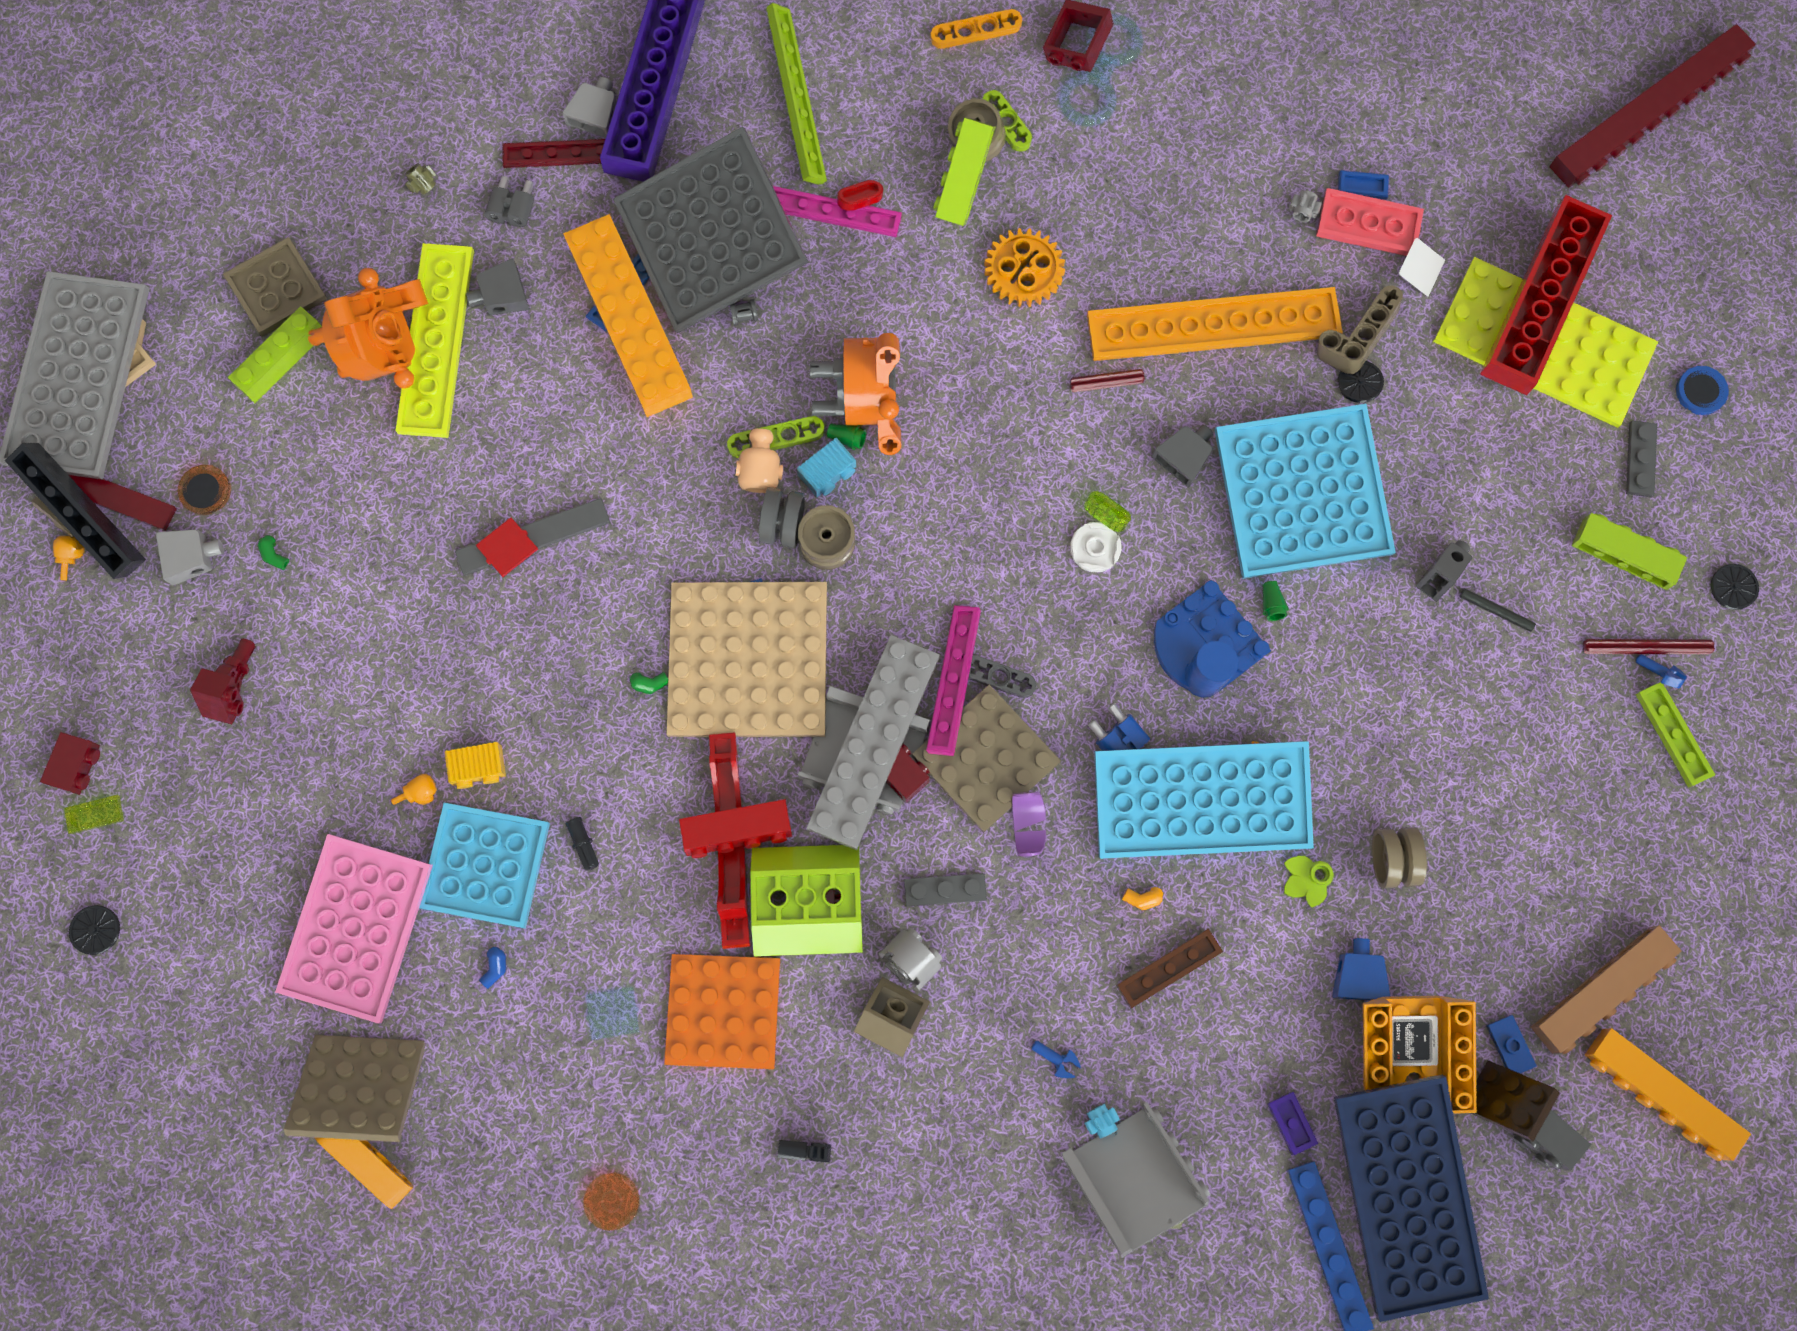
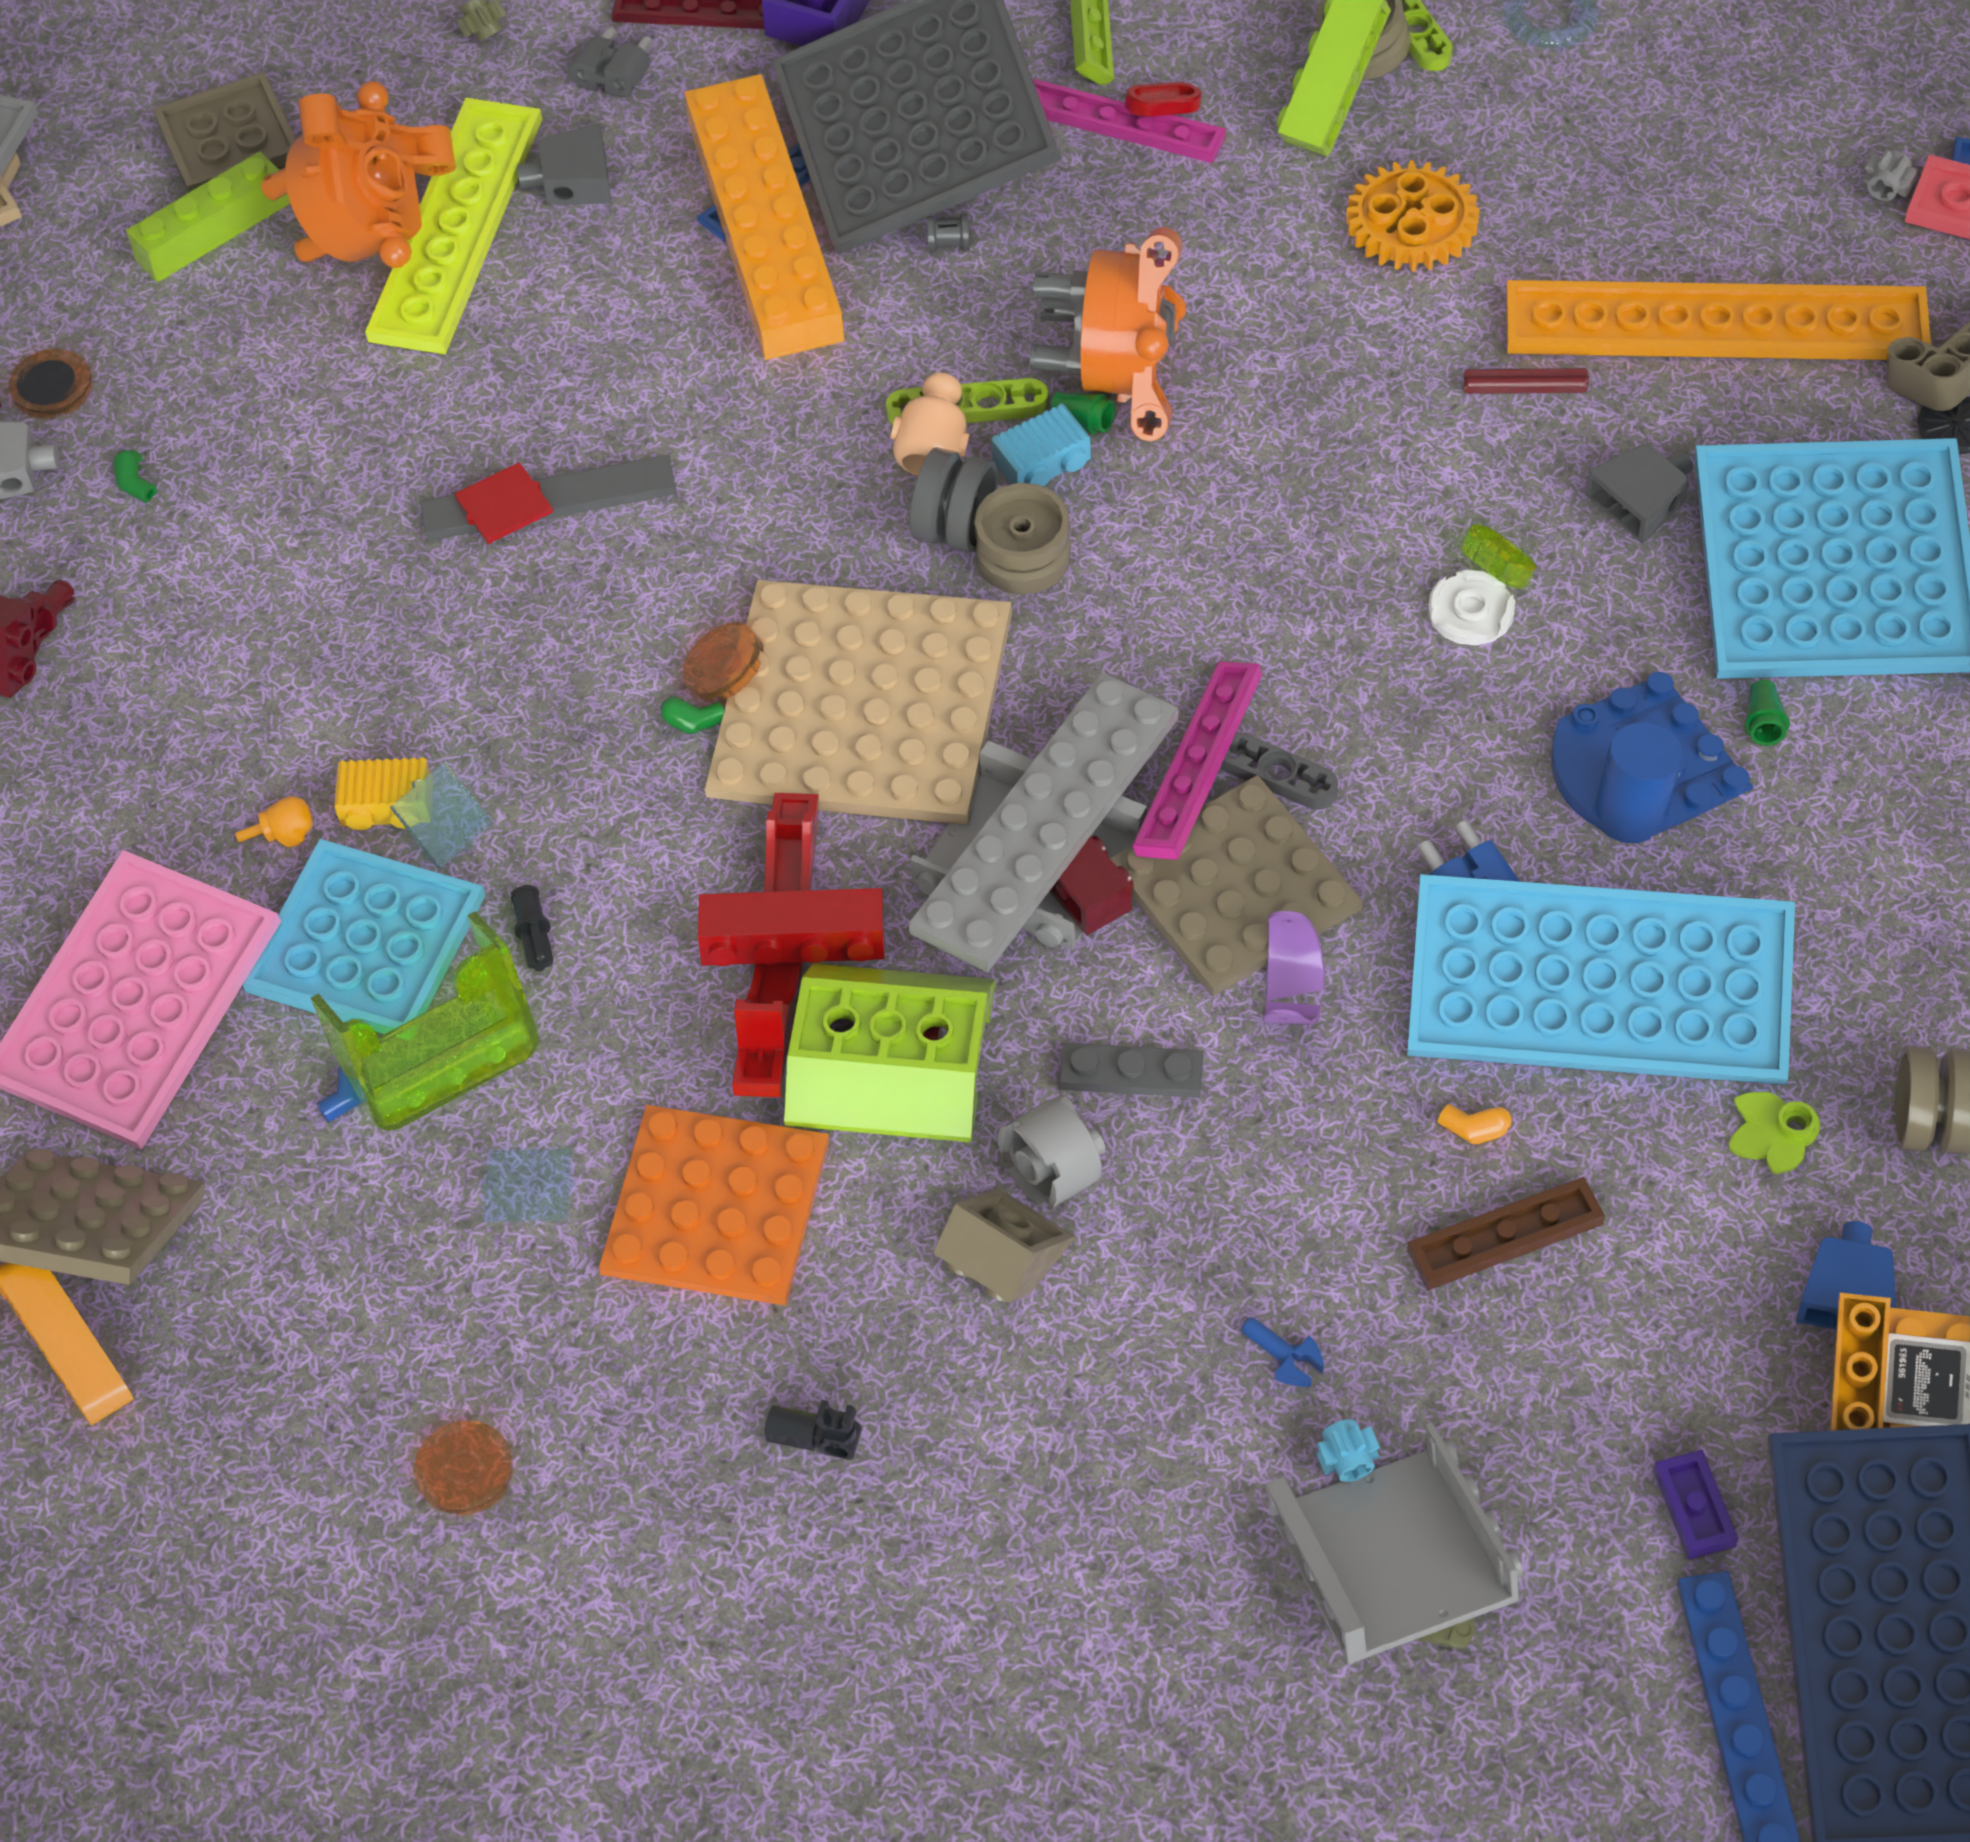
camera: 15 degrees right, 20 degrees down
(513, 777) = (441, 815): none -> clear light blue piece
(542, 938) = (444, 1049): none -> clear neon green windscreen
(662, 646) = (723, 661): none -> clear orange tile

